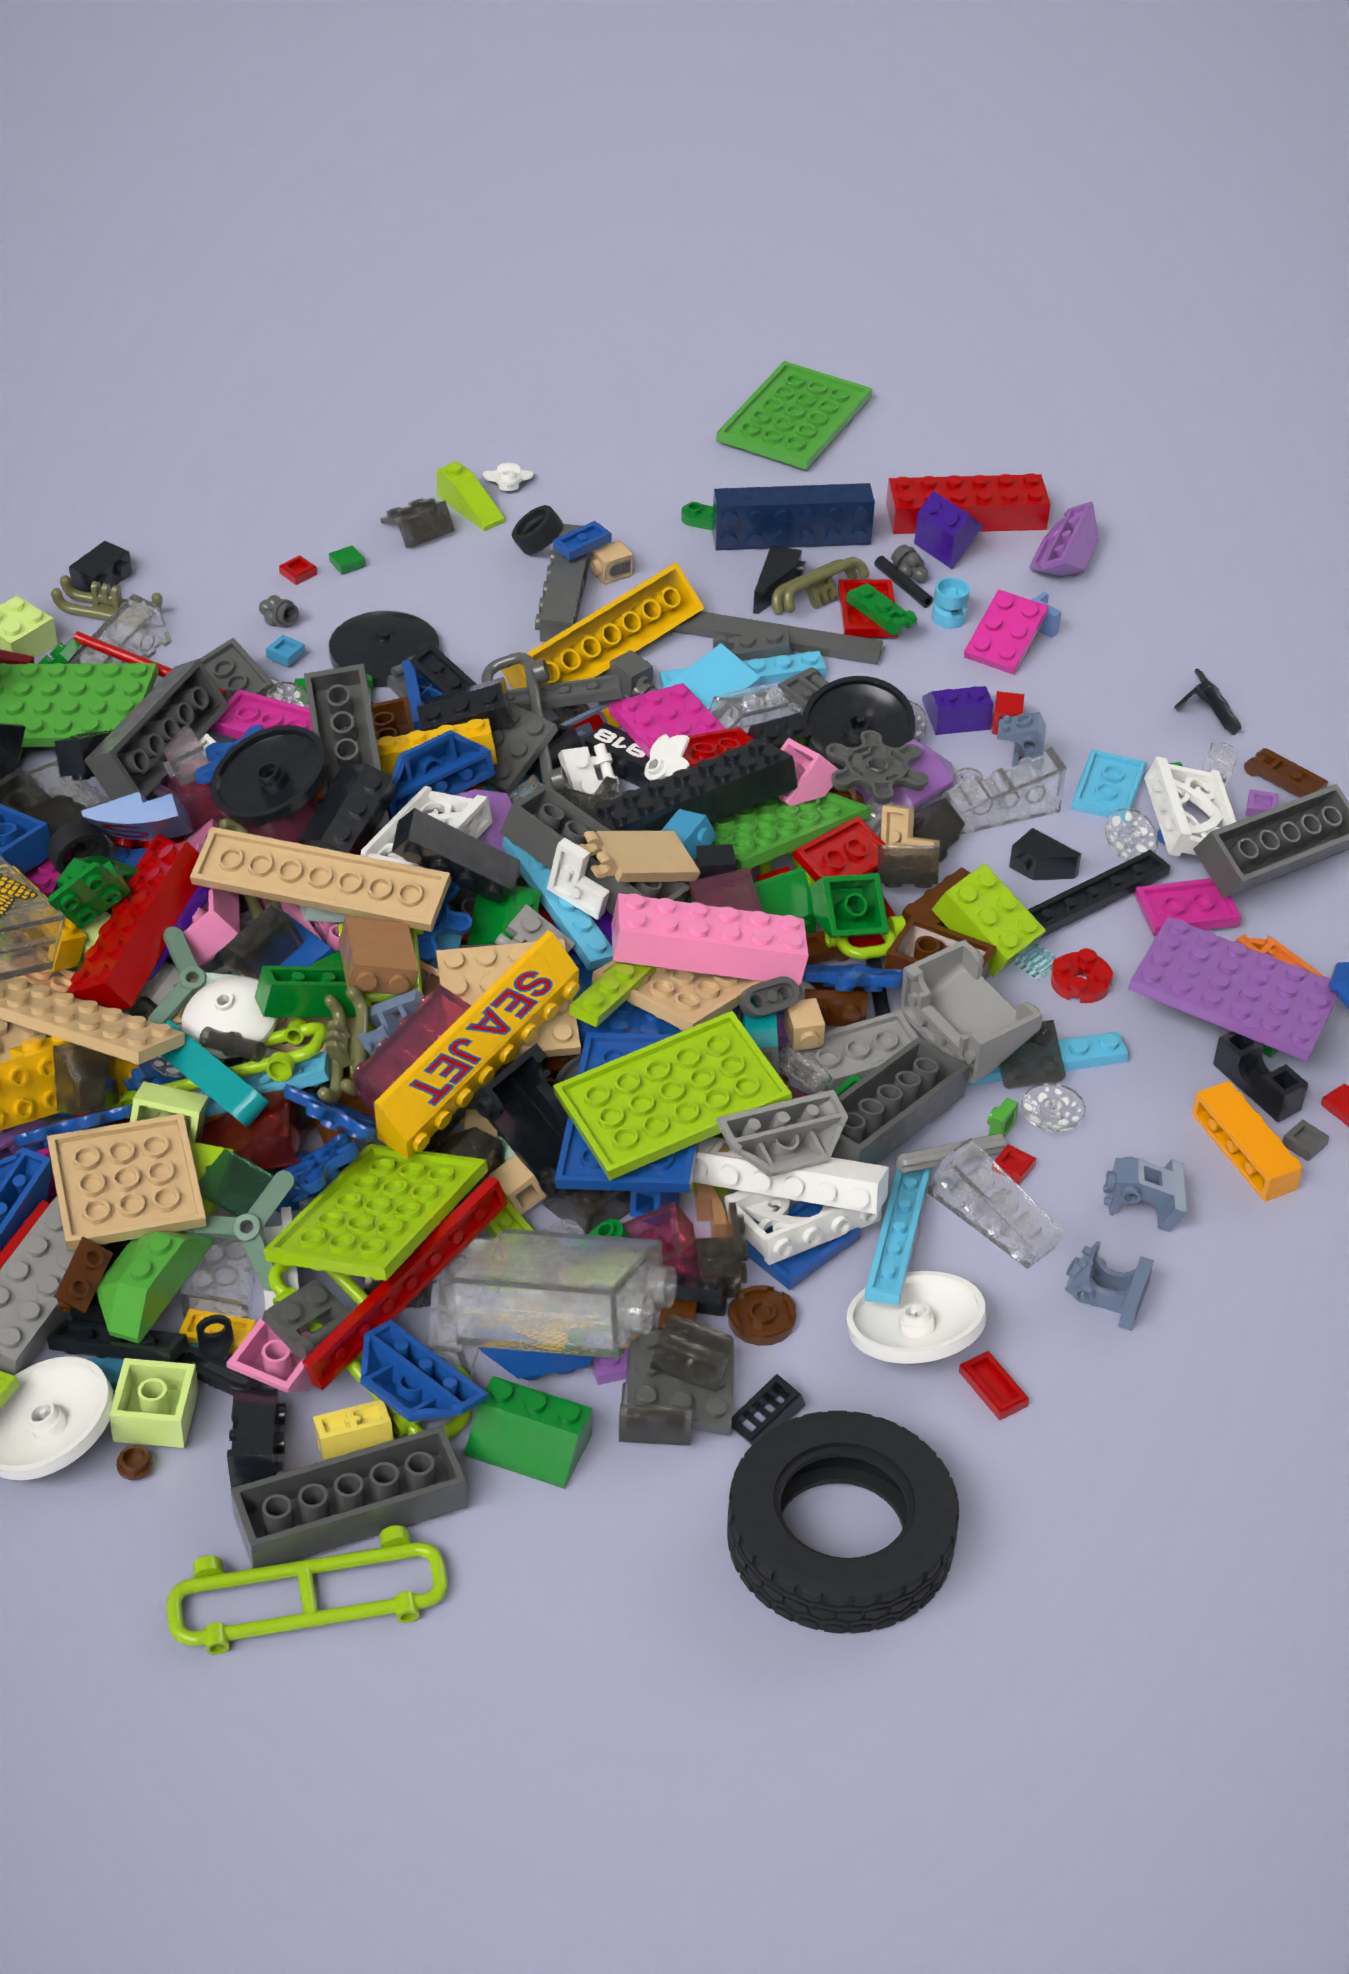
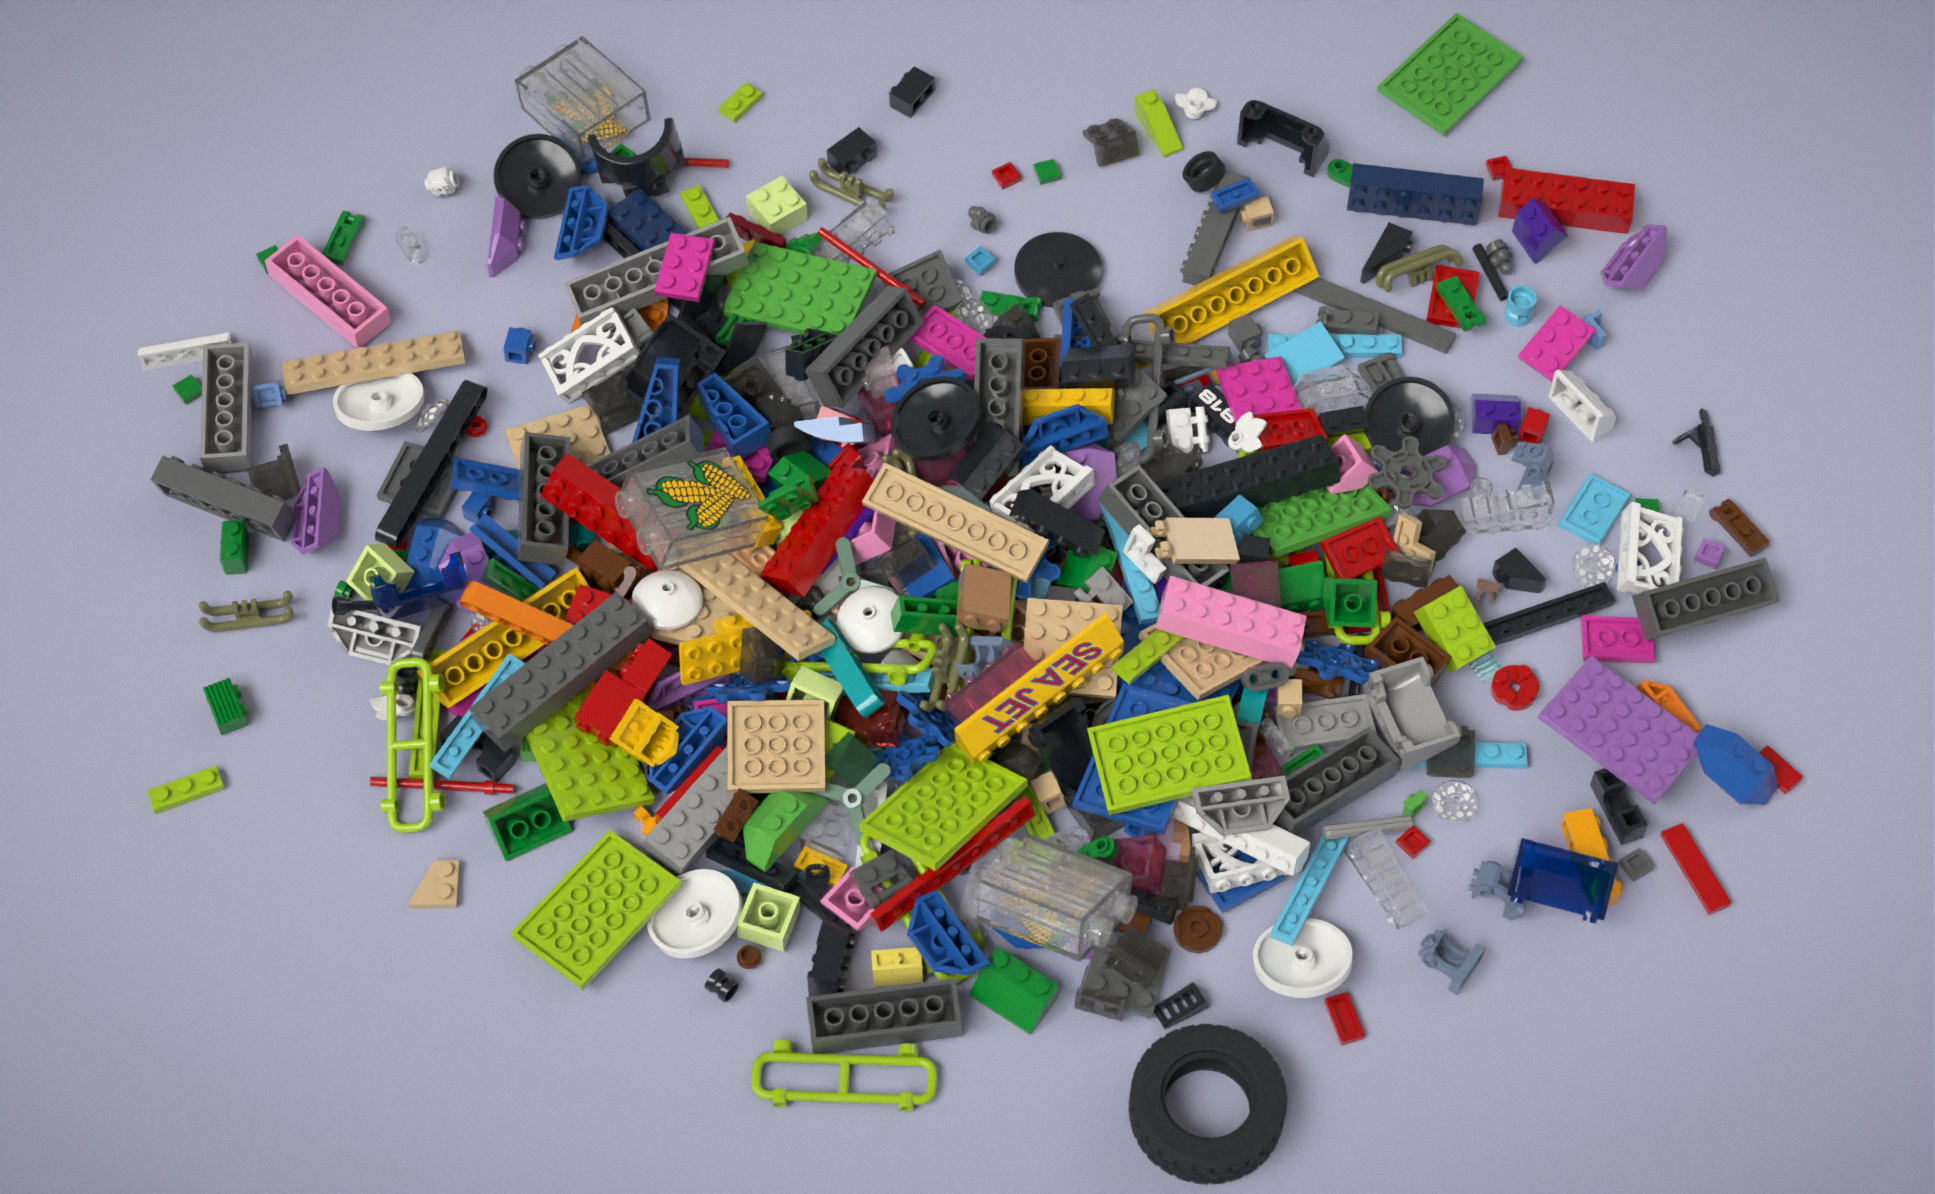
camera: 15 degrees right, 15 degrees up
(101, 1505) = (722, 985): none -> black wheel
(163, 506) = (912, 91): none -> black brick
(232, 1044) = (868, 649): clear smoke pin -> none
(621, 478) = (1262, 120): none -> black windscreen
(879, 488) = (1497, 166): none -> red tile
(976, 730) = (1503, 439): none -> reddish brown tile
(1013, 876) = (1487, 587): none -> reddish brown tile
(1056, 684) = (1581, 405): none -> white slope
(1227, 1157) = (1561, 879): none -> clear blue windscreen

